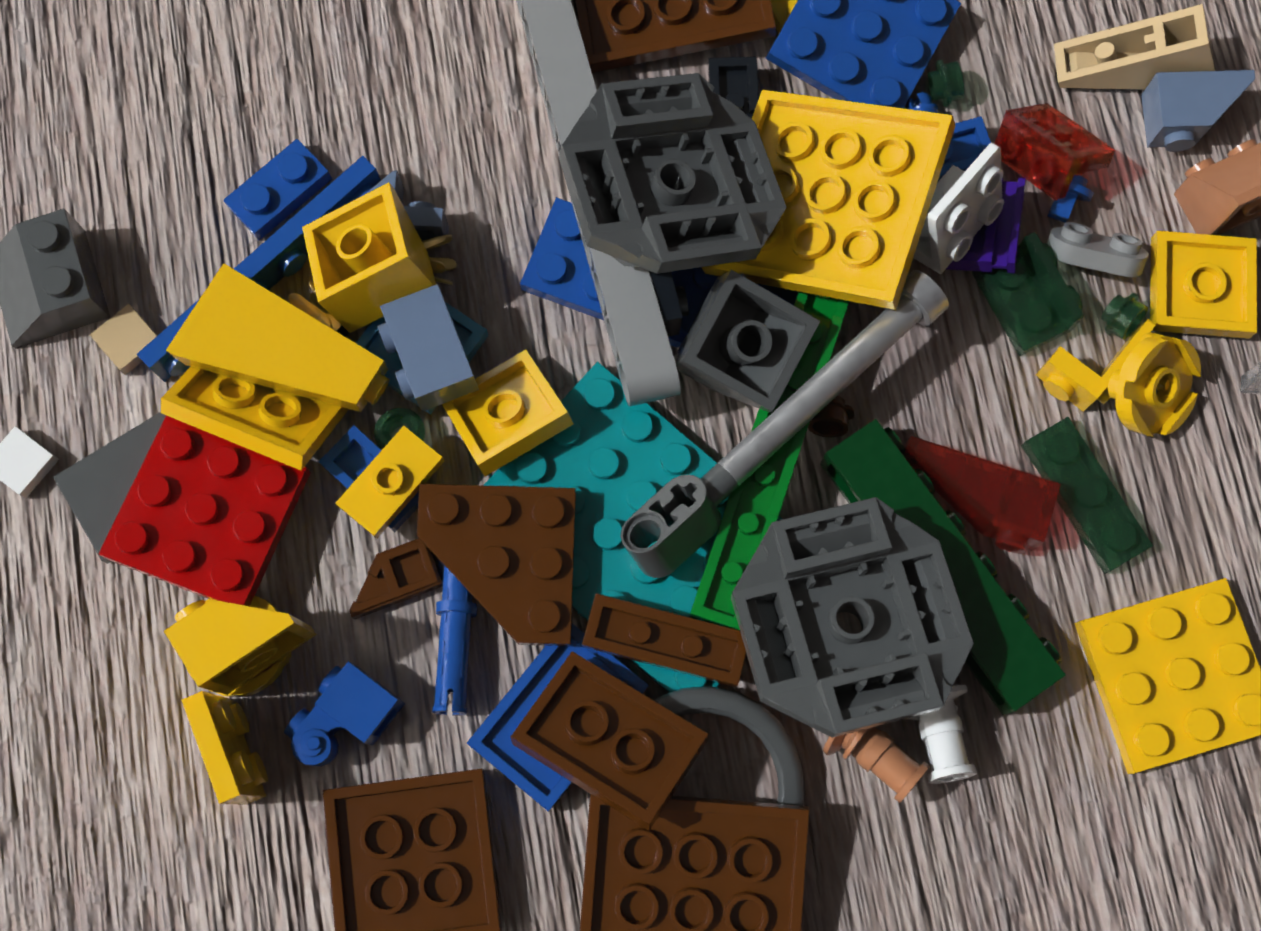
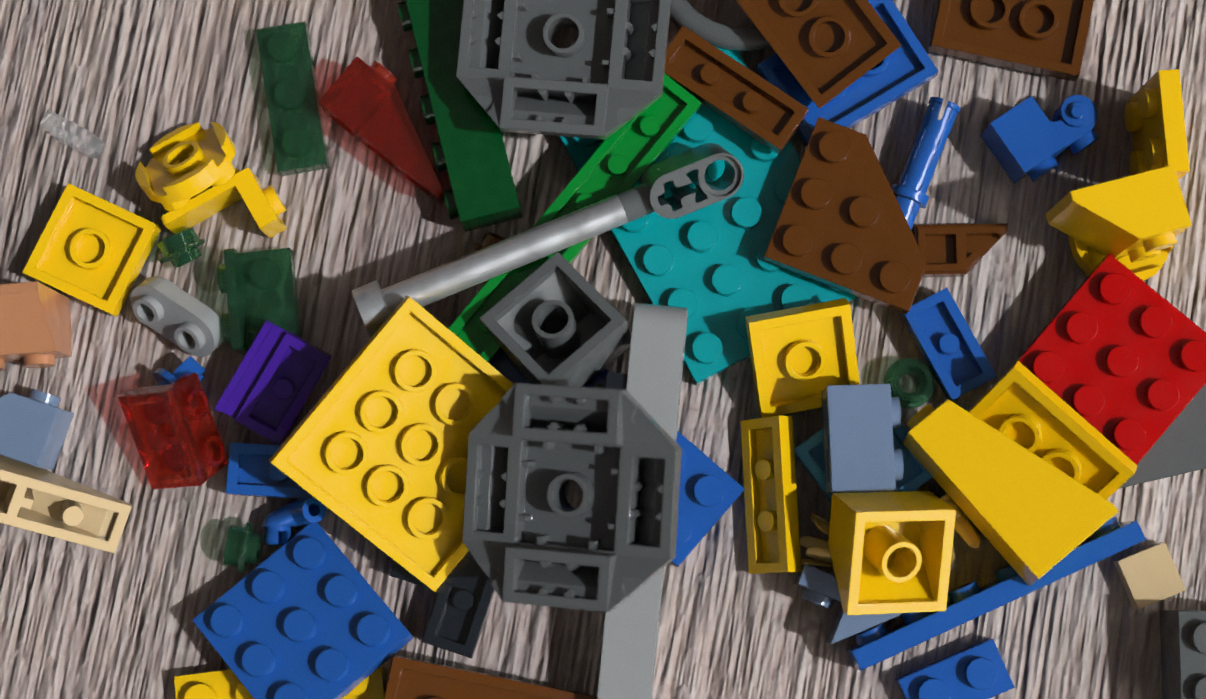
camera: 155 degrees left, 5 degrees up
(390, 481) = (935, 327): yellow plate -> none
(494, 284) = (770, 495): none -> yellow plate
(960, 208) = (289, 395): white bracket -> none

